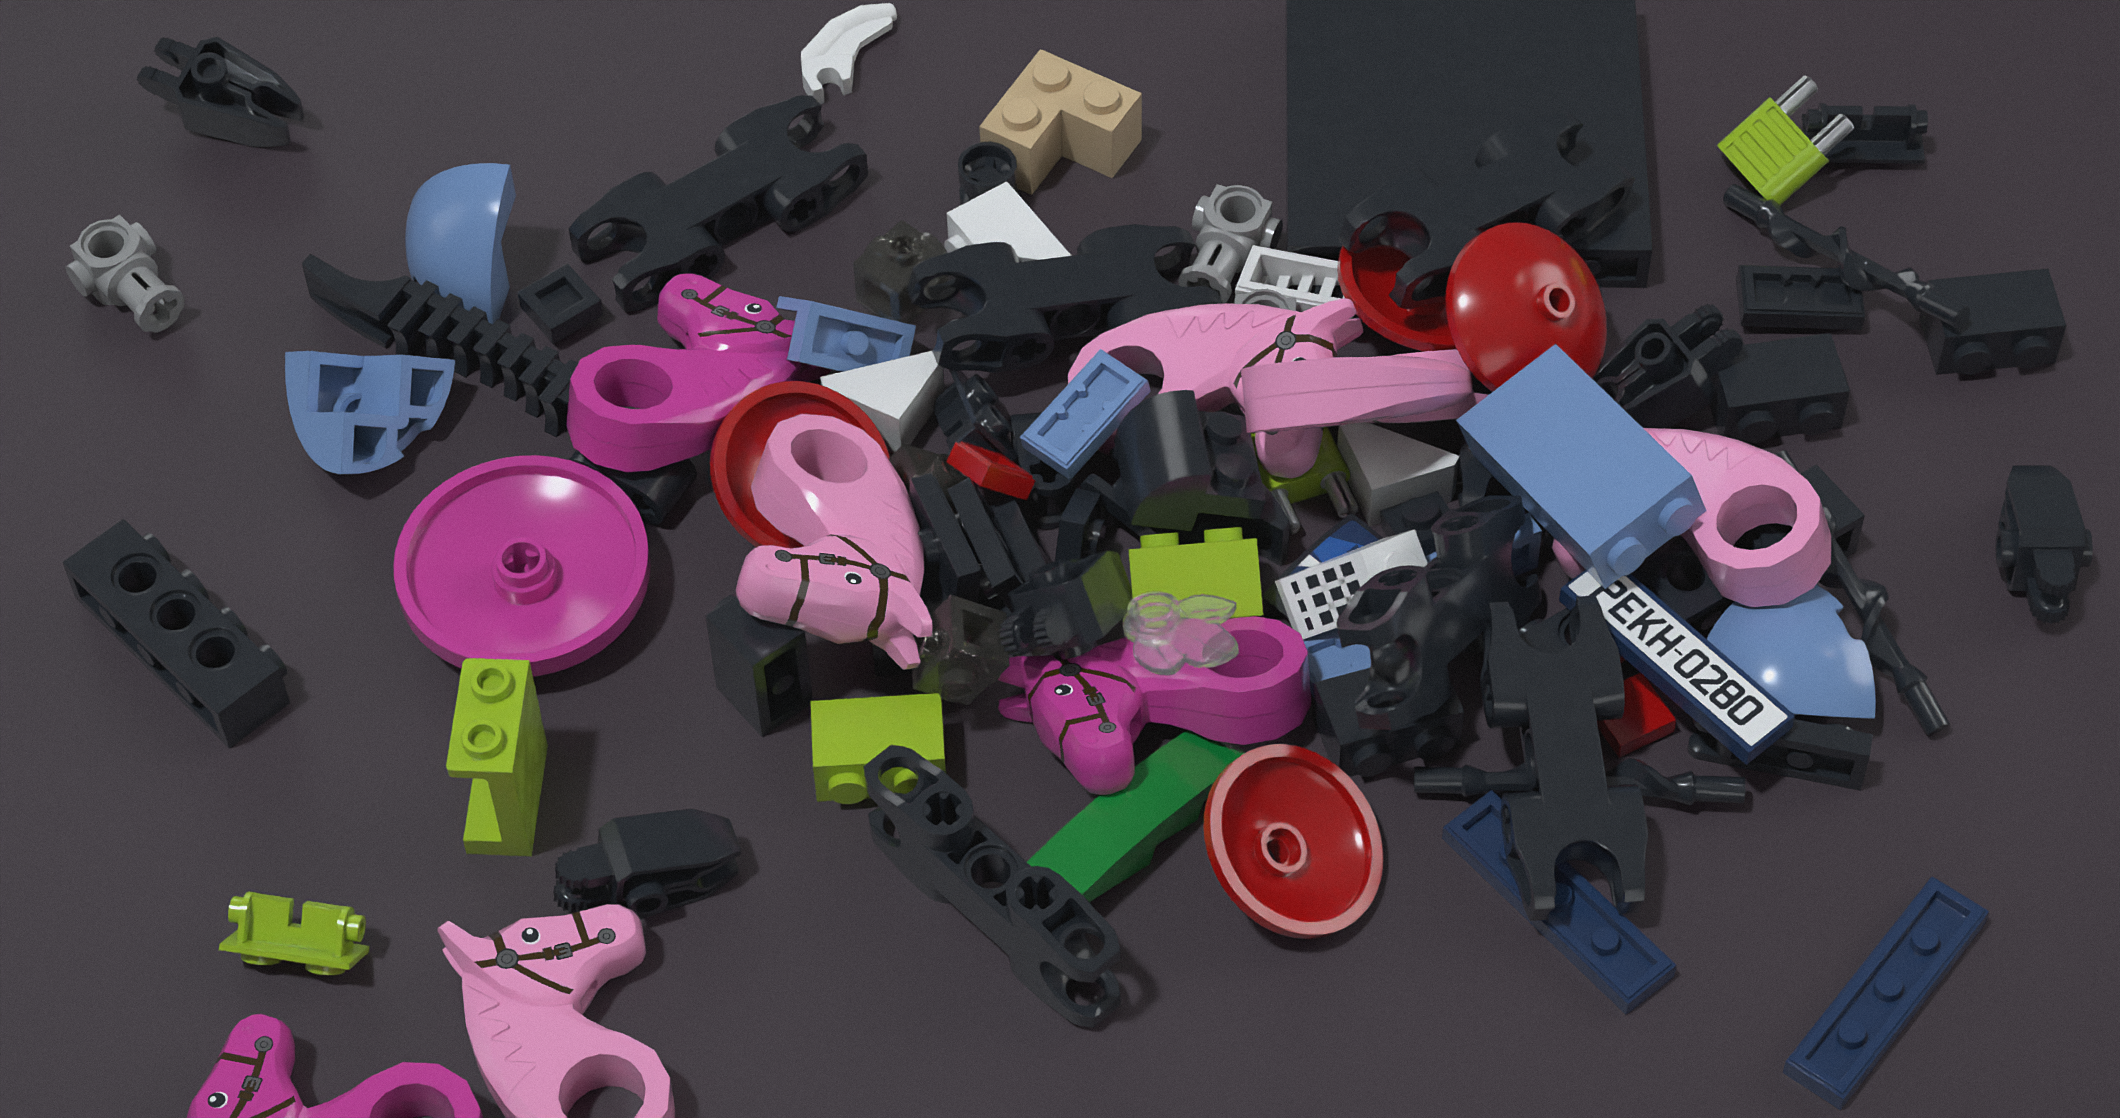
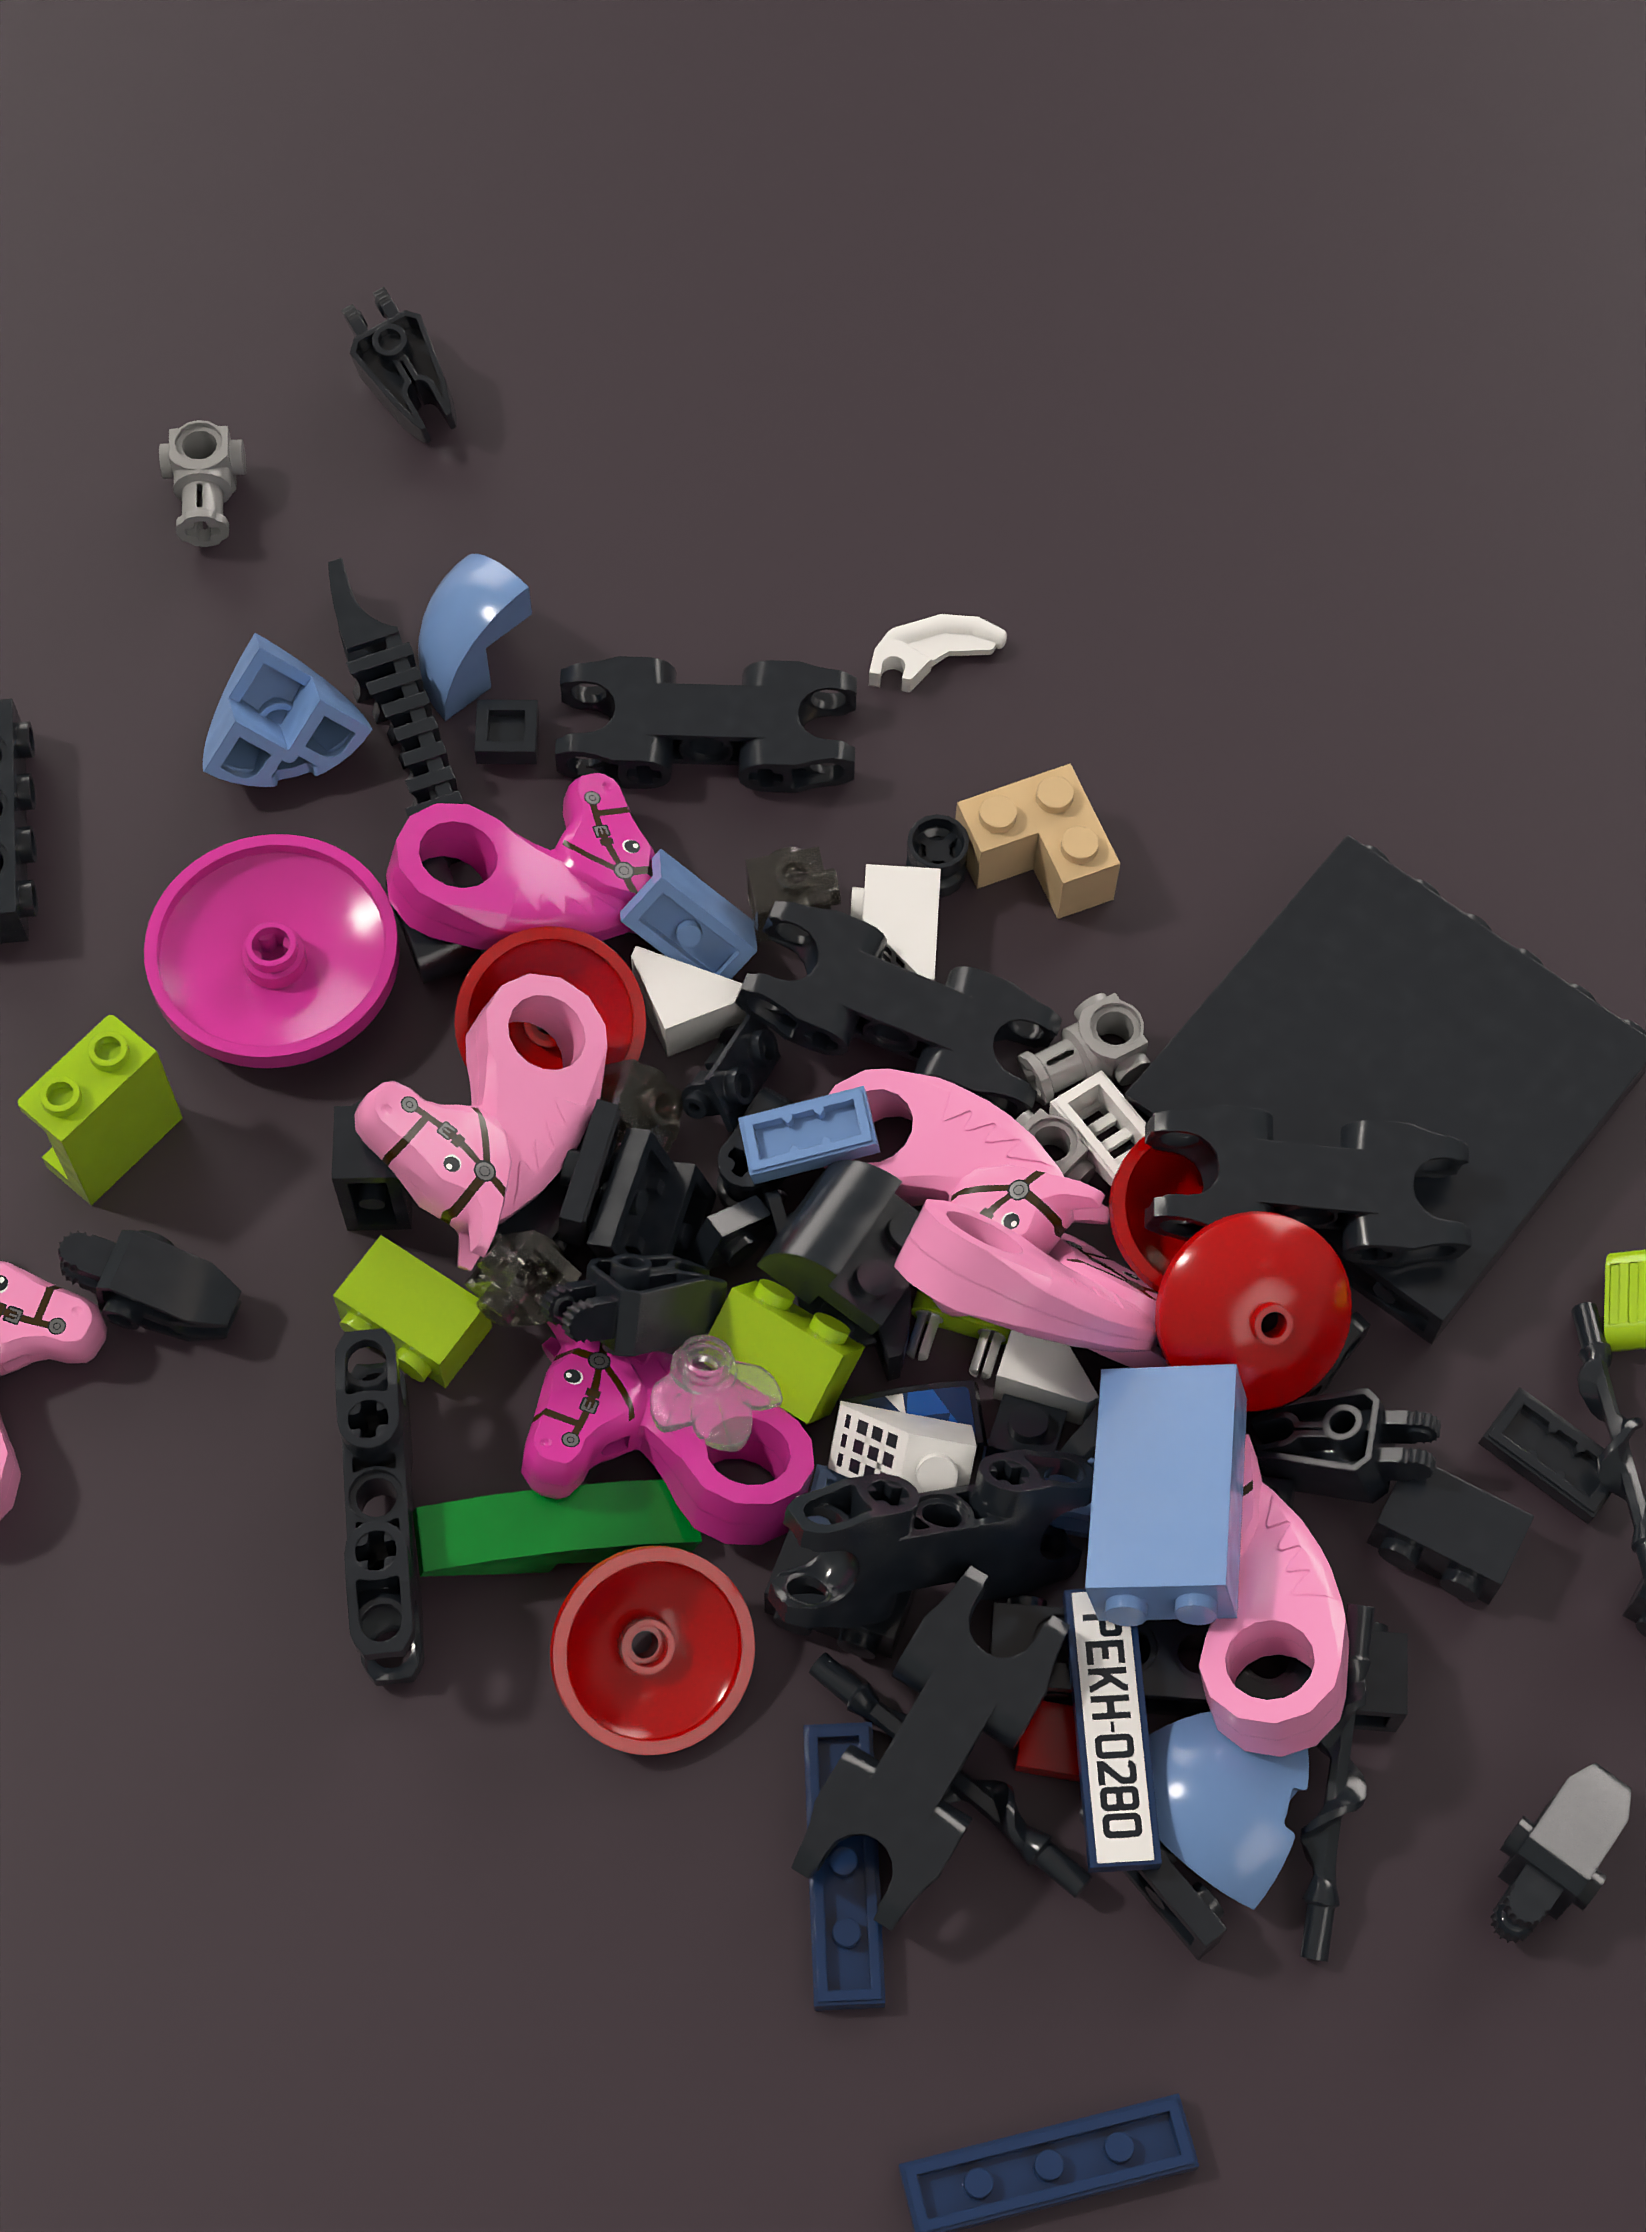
camera: 35 degrees right, 10 degrees up
(991, 470) = (691, 1131): red tile -> none

